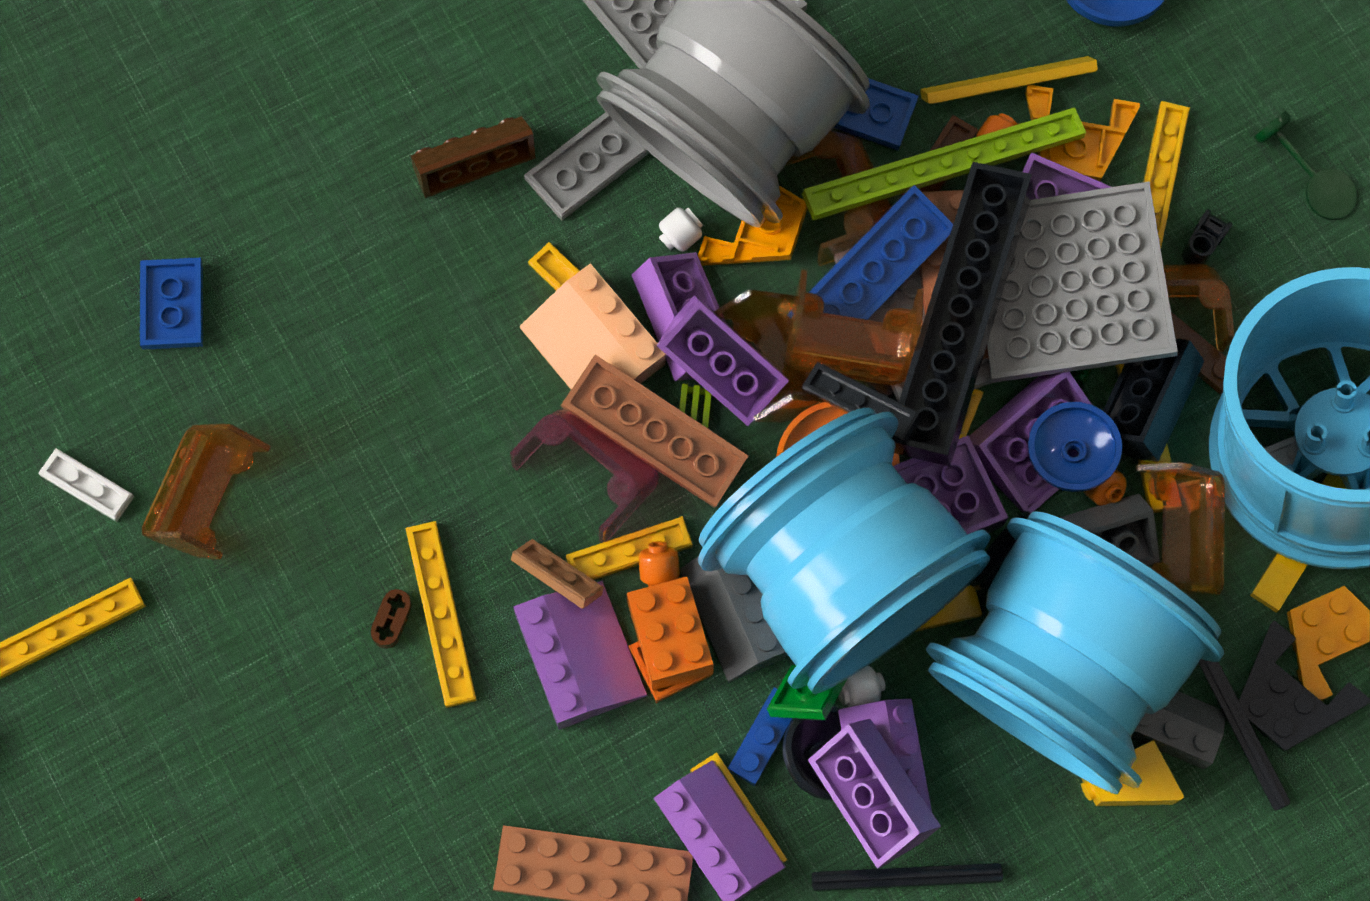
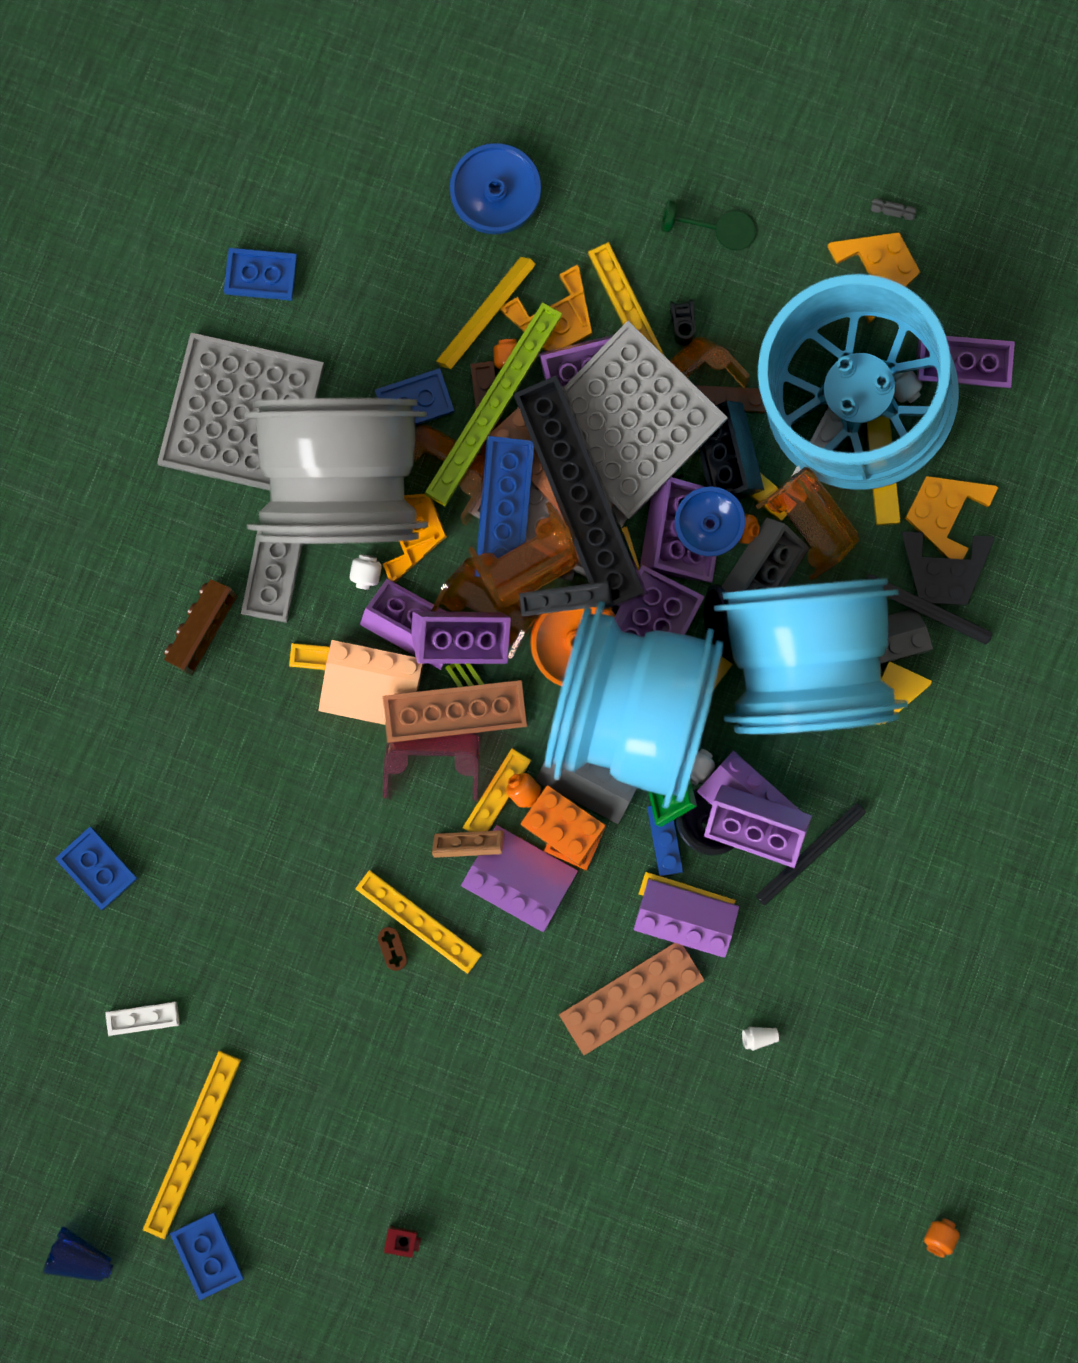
camera: 30 degrees left, 10 degrees up
(196, 486) = (210, 969): clear orange windscreen -> none

